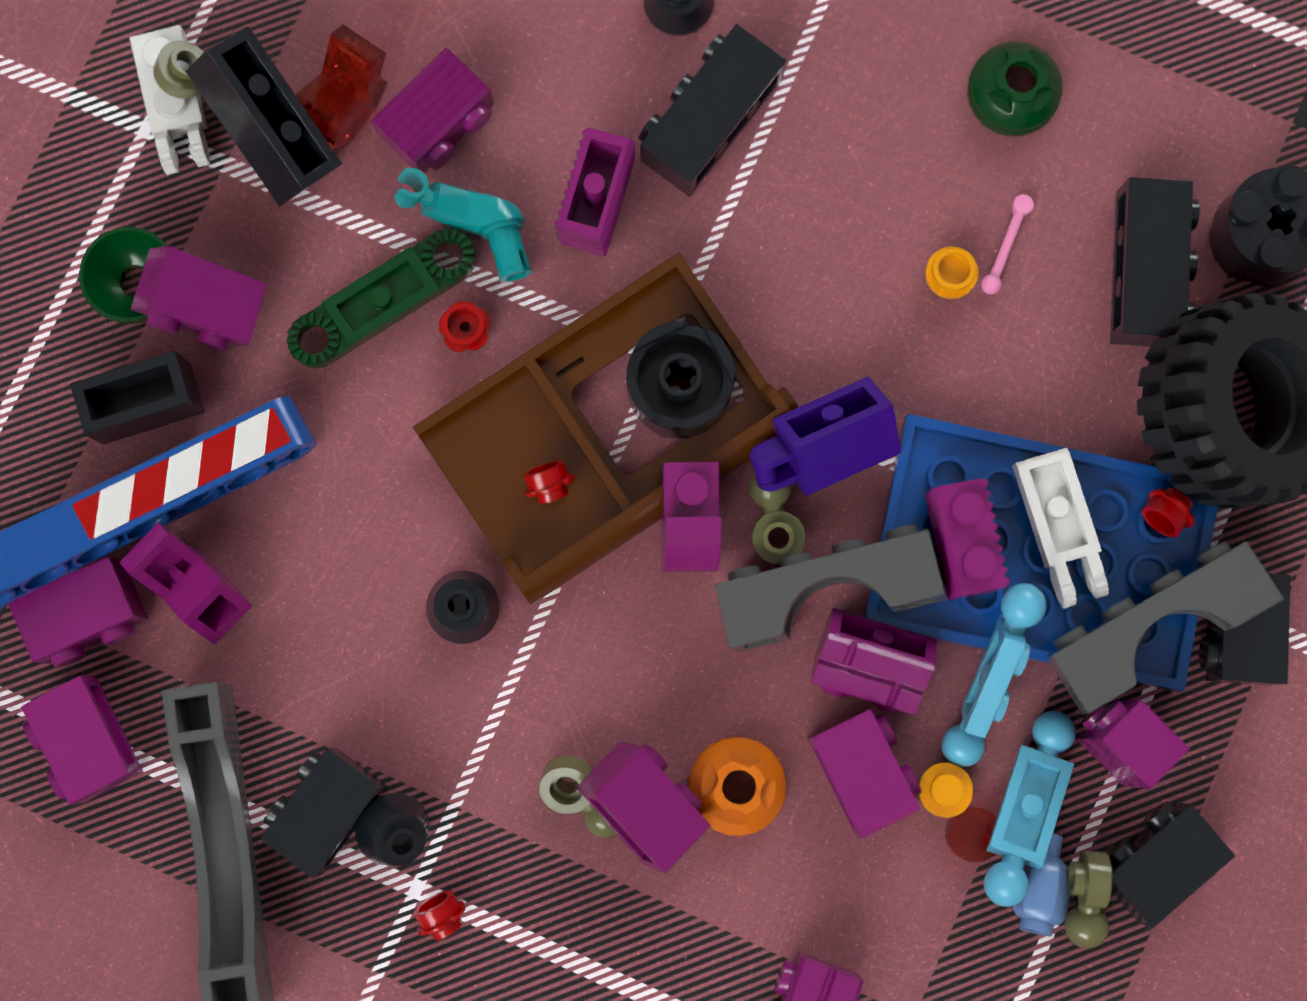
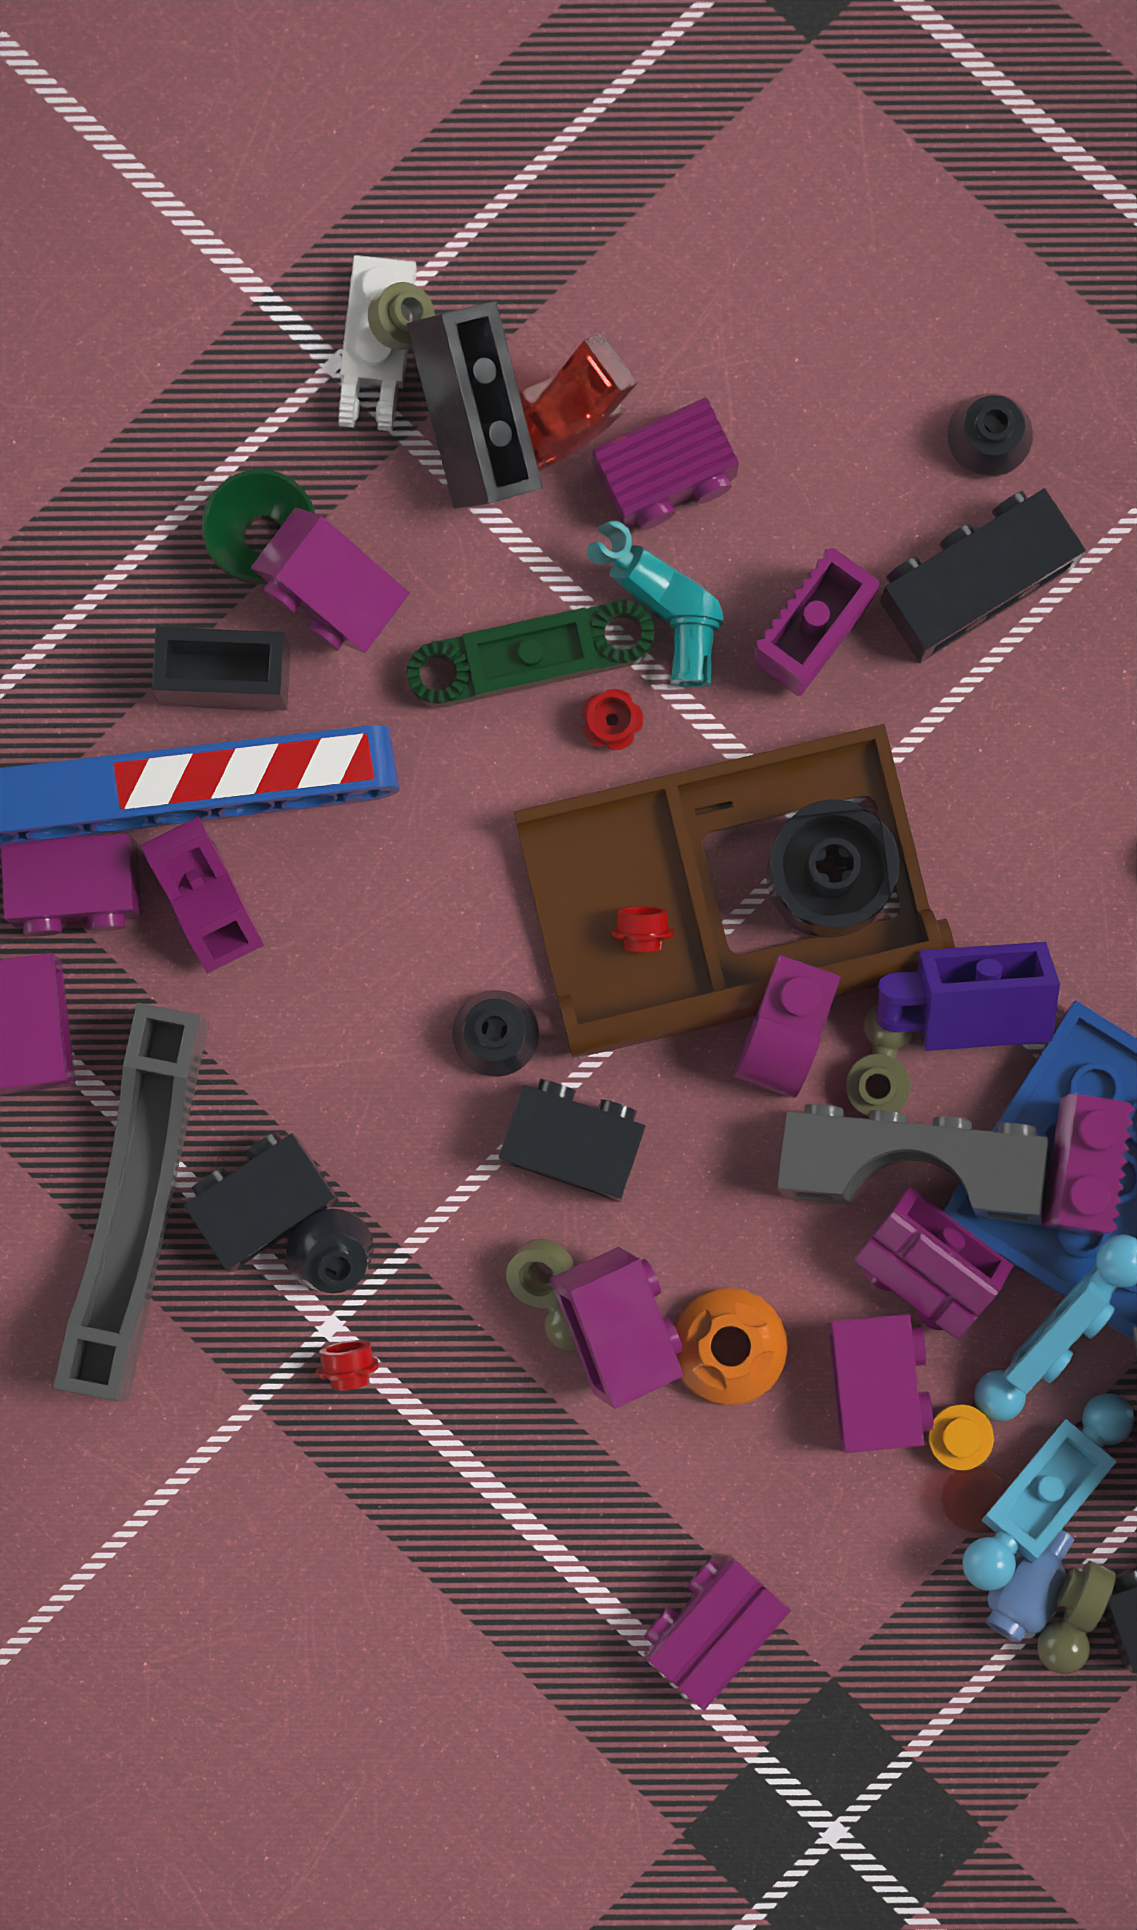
camera: 25 degrees right, 0 degrees up
(553, 670) = (573, 1140): none -> black piece

